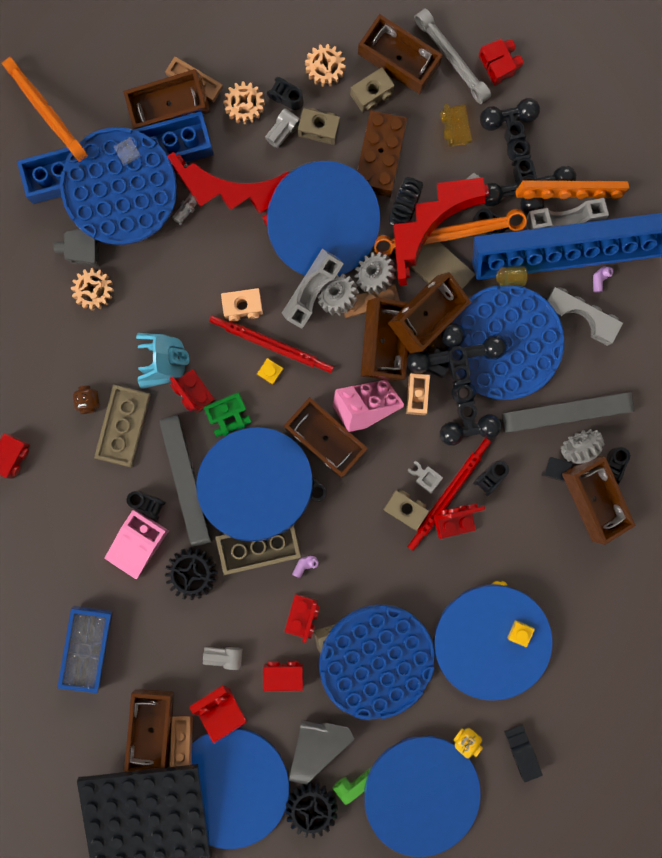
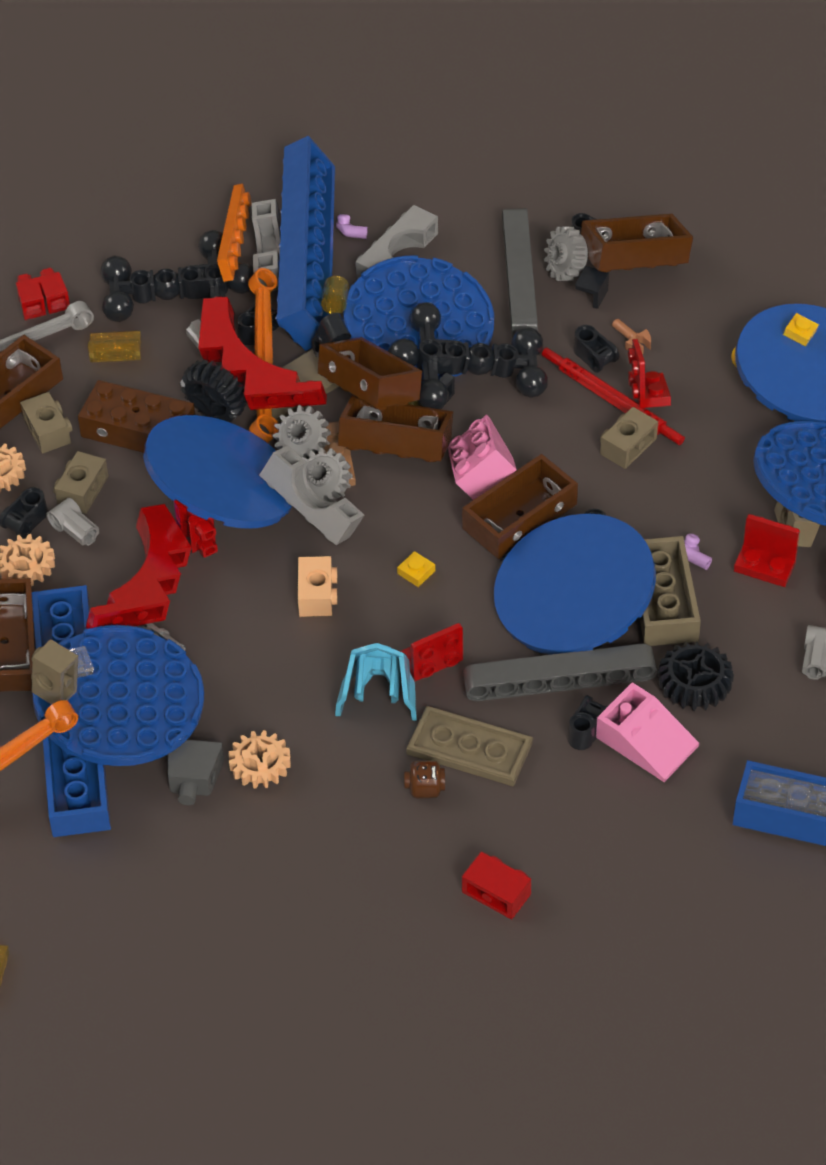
camera: 80 degrees left, 35 degrees down
(103, 137) = (54, 672): none -> dark tan brick
(224, 409) = (463, 611): green plate -> none
(271, 344) = (376, 563): red axle -> none
(417, 394) = (474, 404): light nougat brick -> none
(427, 478) = (587, 412): light grey plate -> none
(467, 279) = (330, 330): none -> black piece
(513, 504) = (643, 337): none -> nougat bar

